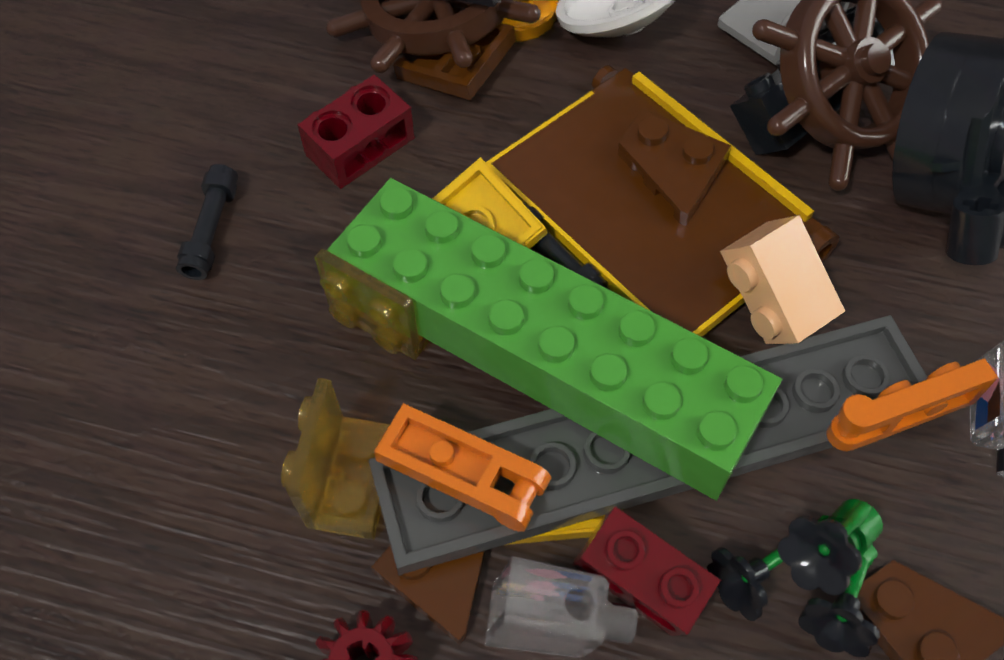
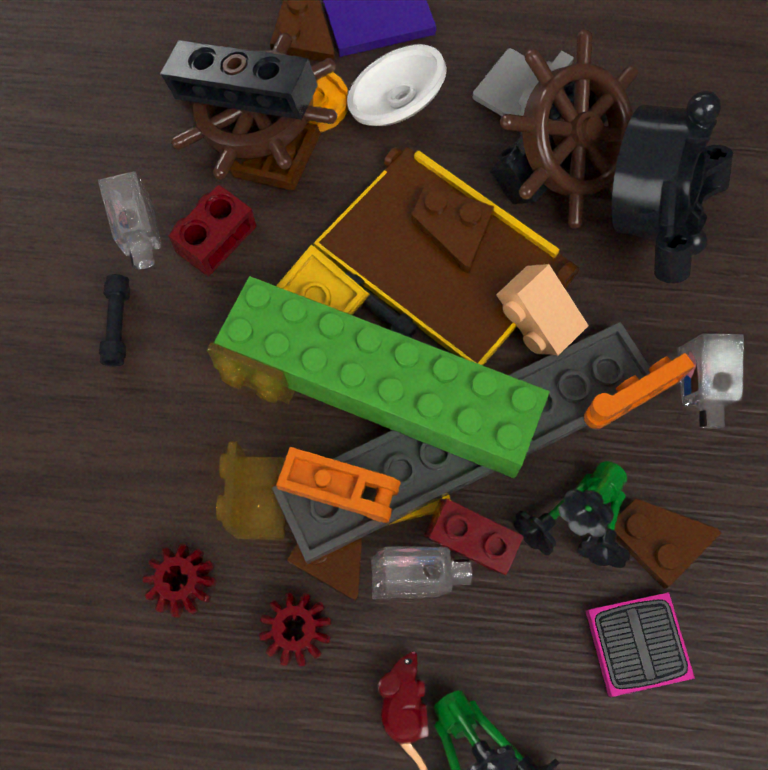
camera: 10 degrees left, 10 degrees up
(189, 564) = (162, 580): none -> dark red gear
(256, 113) = (131, 217): none -> clear torso

